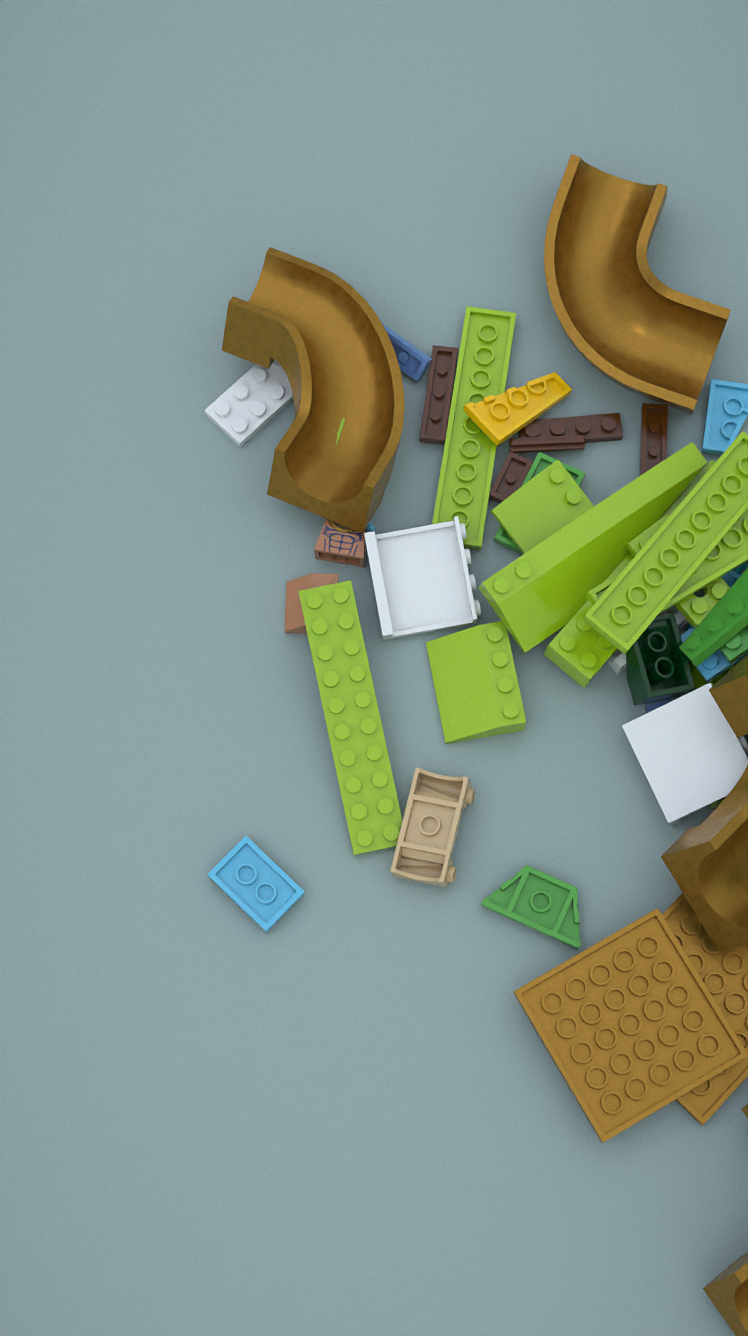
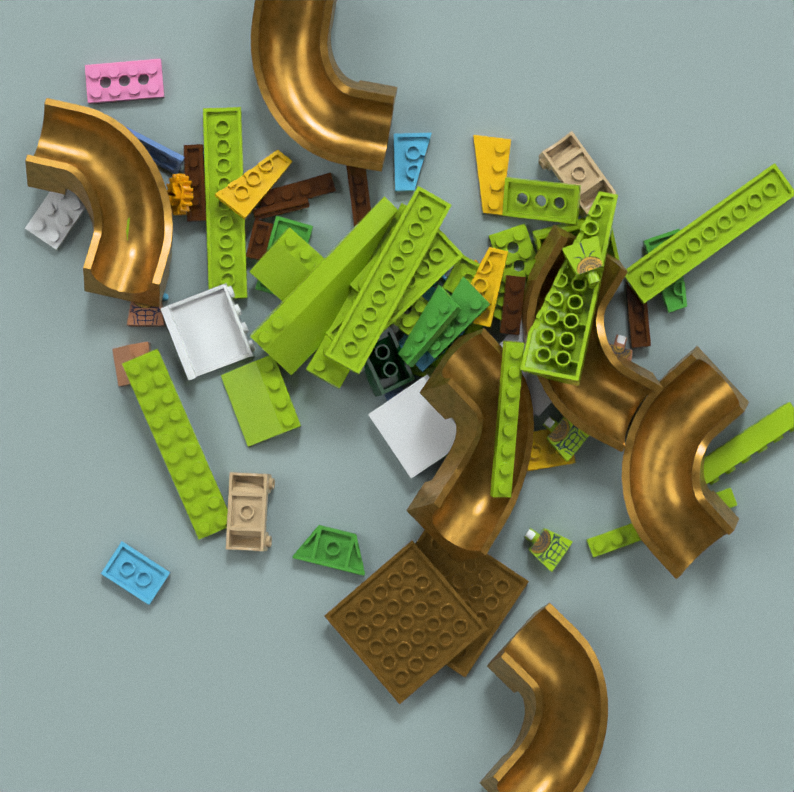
camera: 15 degrees left, 15 degrees up
(382, 248) = (117, 70): none -> bright pink plate
(419, 399) = (180, 194): none -> light orange gear

